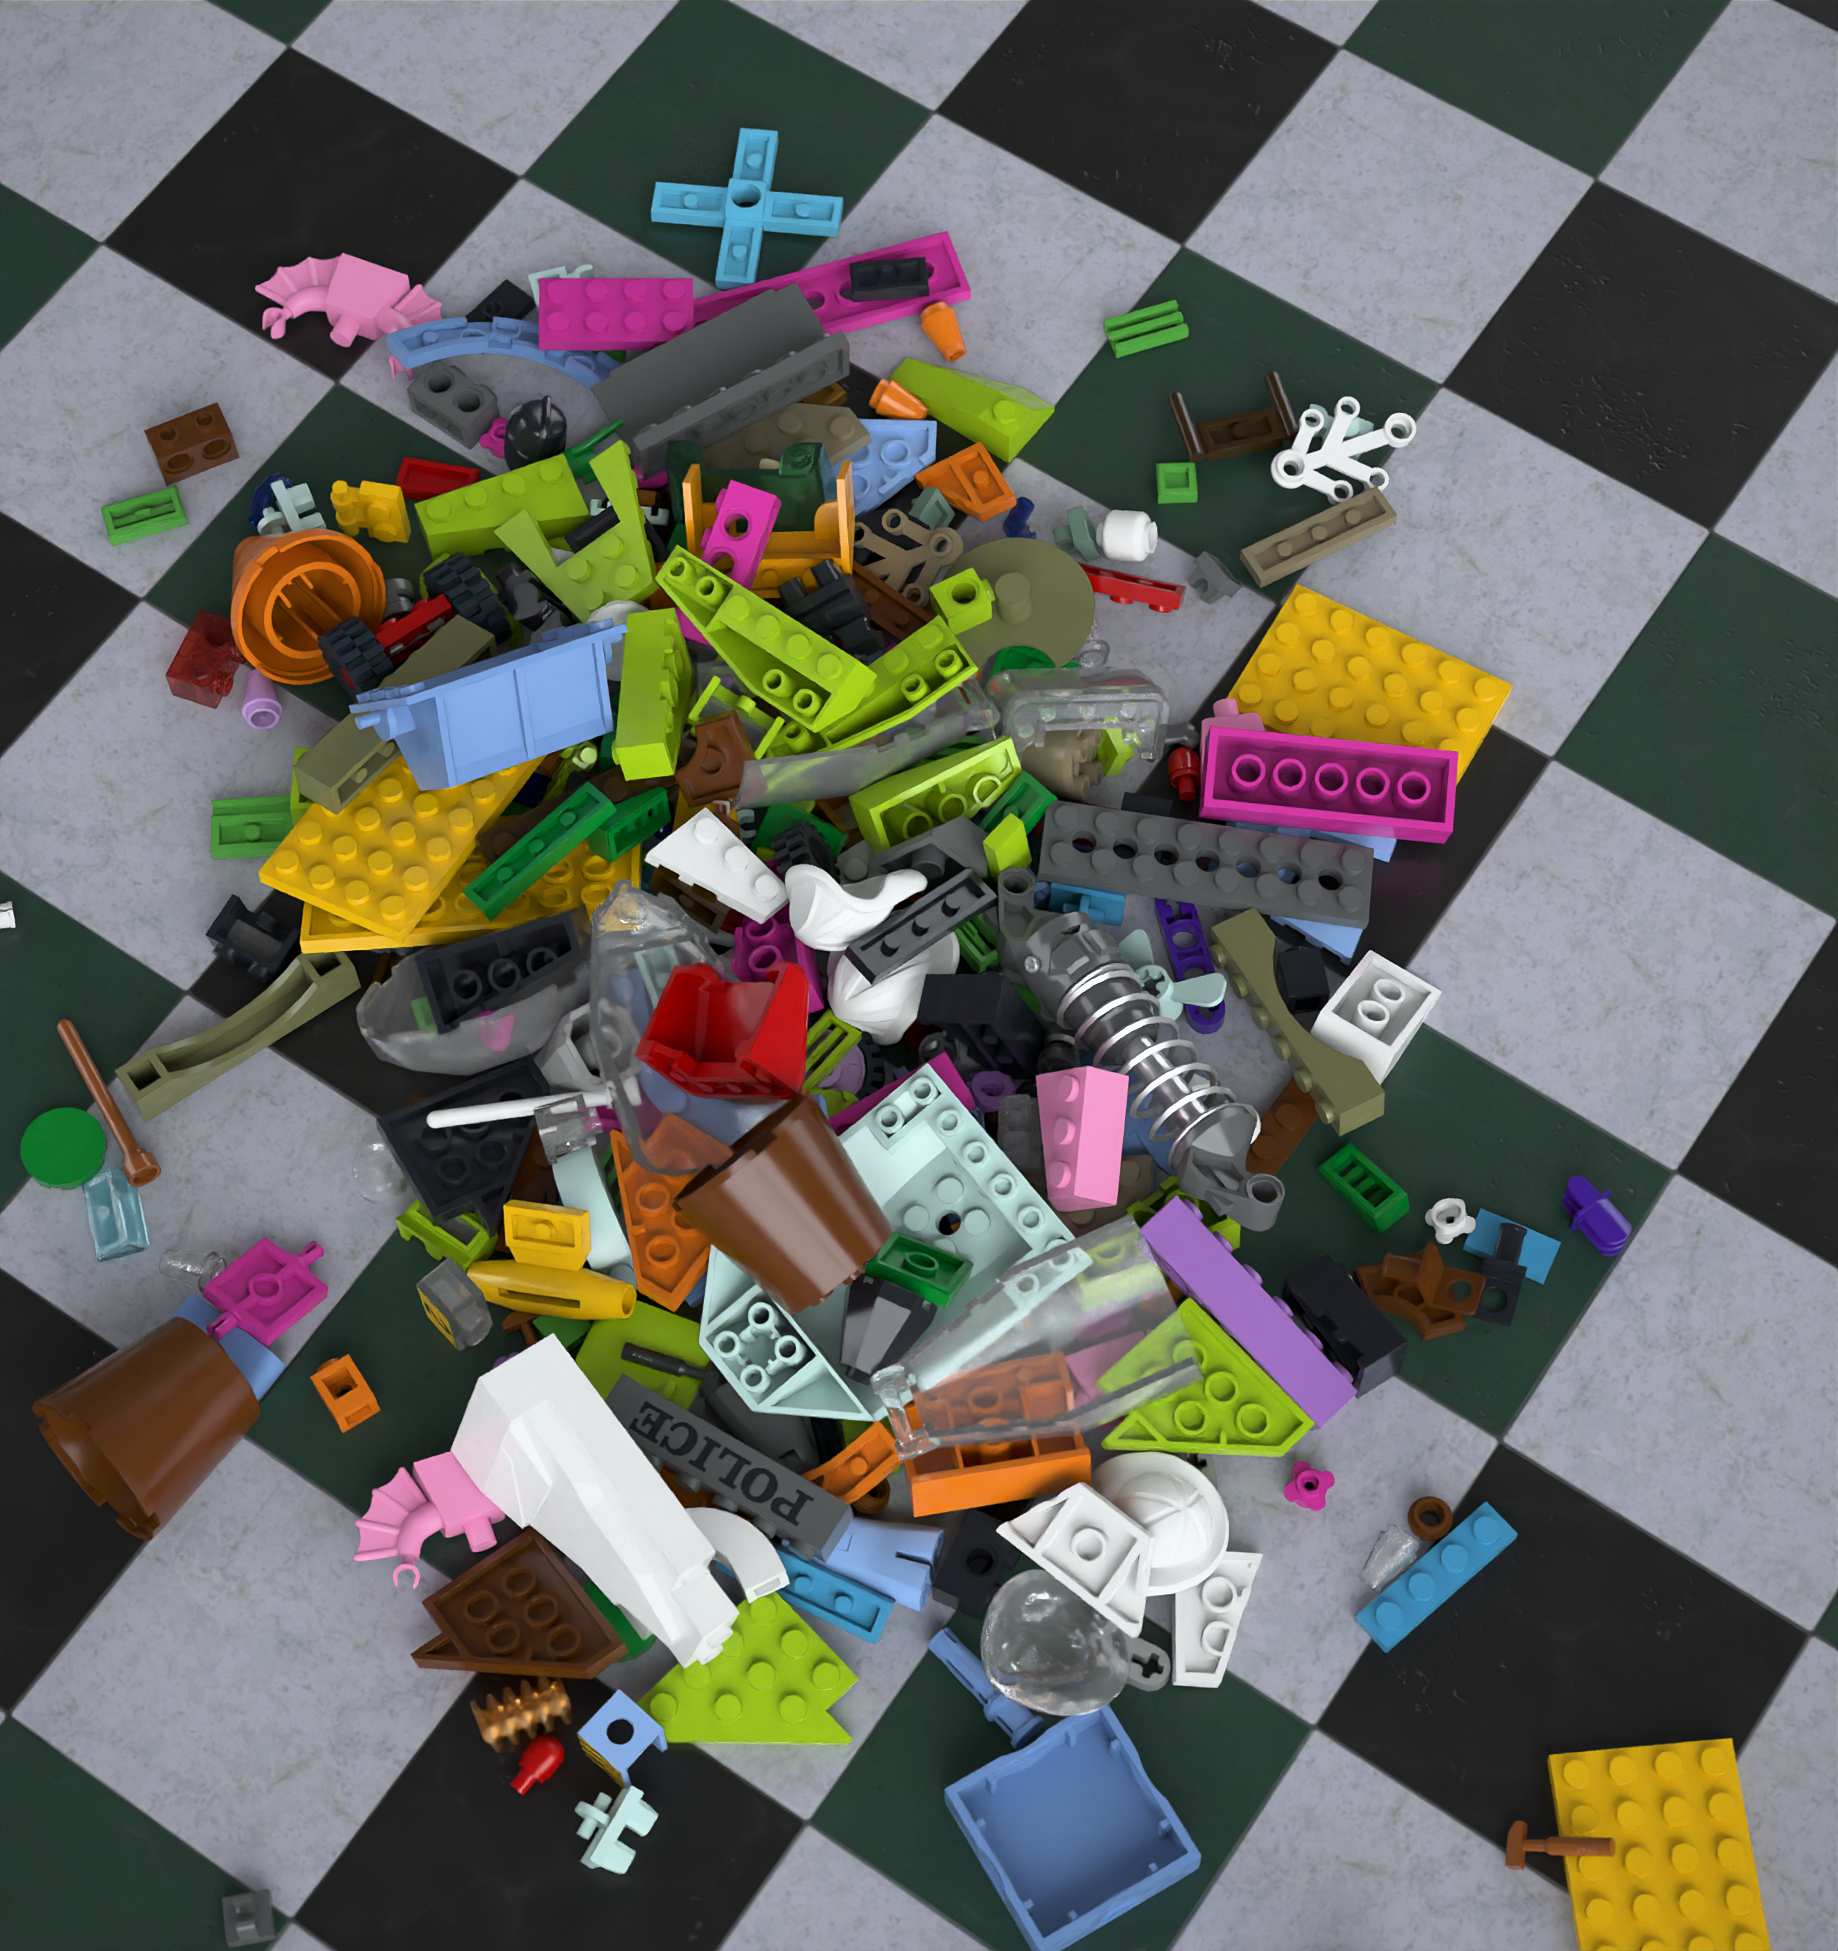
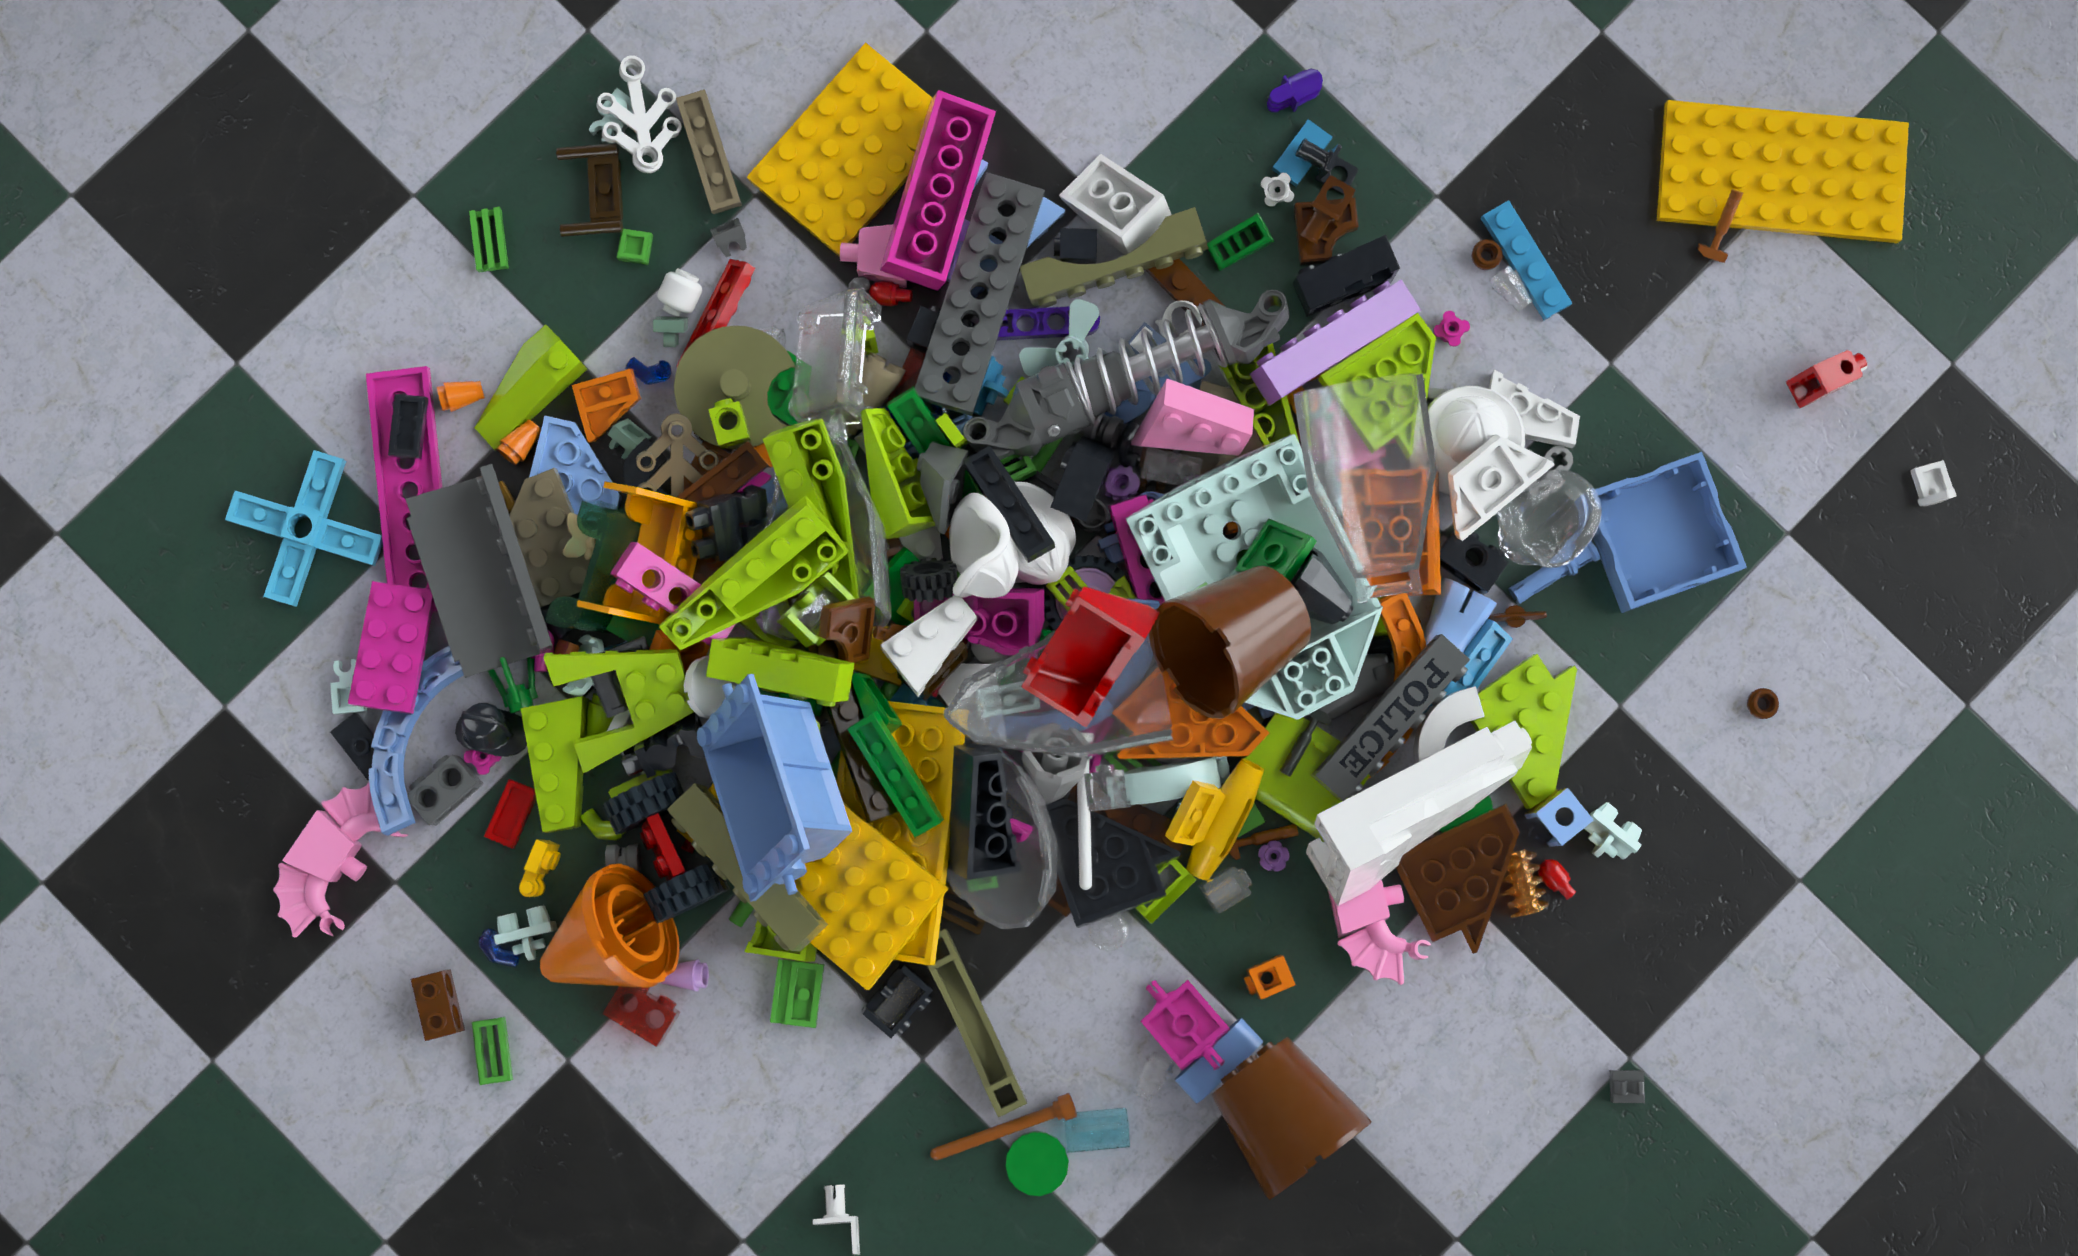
camera: 85 degrees left, 20 degrees up
(909, 1645) = (1516, 616): none -> reddish brown piece

